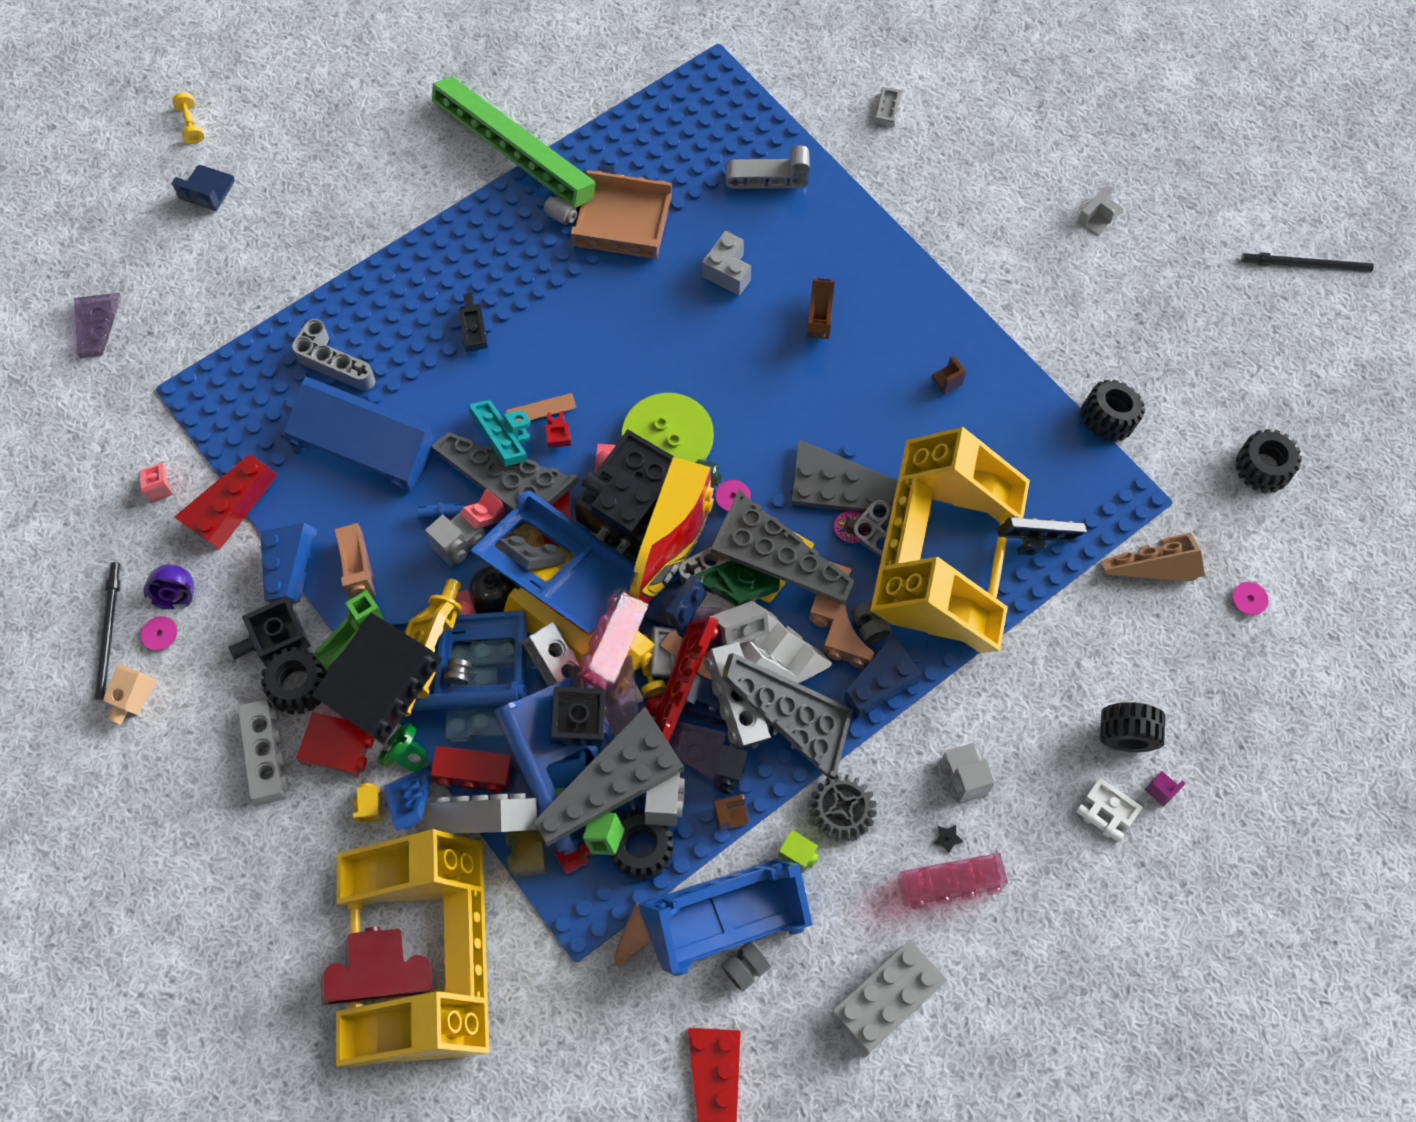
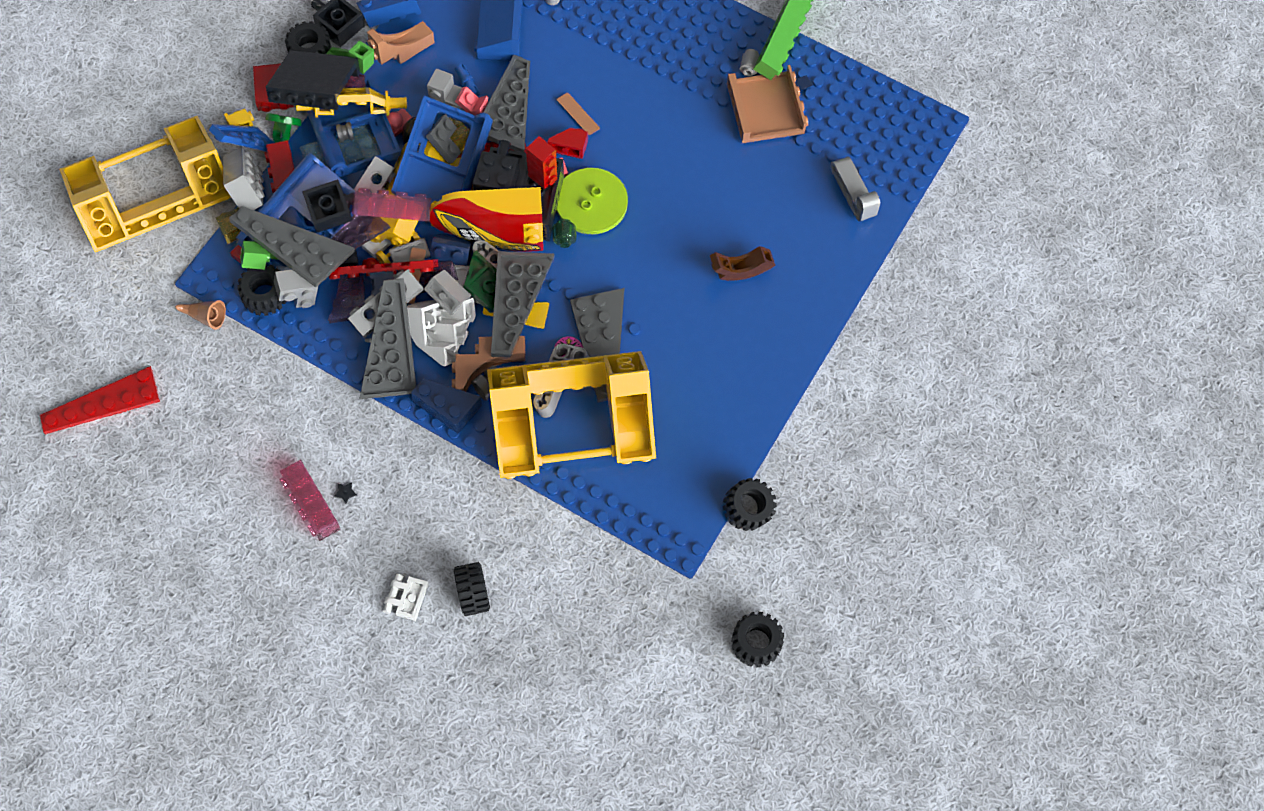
camera: 65 degrees right, 0 degrees up
(251, 717) = (252, 48): light grey brick -> none
(375, 970) = (126, 164): dark red brick -> none
(472, 325) = (626, 43): black hinge -> none
(501, 432) = (542, 91): teal plate -> none
(557, 431) = (559, 126): red plate -> none
(584, 426) = (570, 142): none -> red slope
(642, 442) = (541, 162): none -> red brick
(724, 264) = (755, 184): light grey brick -> none
(726, 913) = (229, 354): blue windscreen -> none
(727, 491) = (562, 259): dark pink piece -> none
(730, 770) = (335, 324): black brick -> none
(731, 812) = (308, 339): reddish brown panel -> none
(745, 966) = (199, 384): dark grey wheel -> none
(799, 851) = (297, 393): lime brick -> none
(833, 812) = (349, 400): dark grey gear -> none
(888, 107) = (969, 257): light grey plate -> none
(888, 997) = (210, 484): light grey brick -> none
(950, 376) = (726, 376): reddish brown panel -> none
(968, 774) = (394, 486): light grey brick -> none
(1036, 531) = (606, 473): black plate -> none
(1100, 211) = (946, 448): light grey panel -> none
(1163, 788) = (436, 631): magenta panel -> none
(1175, 559) = (631, 585): medium nougat wedge -> none
(1253, 591) = (627, 651): dark pink piece -> none
(1265, 259) = (964, 593): black bar -> none

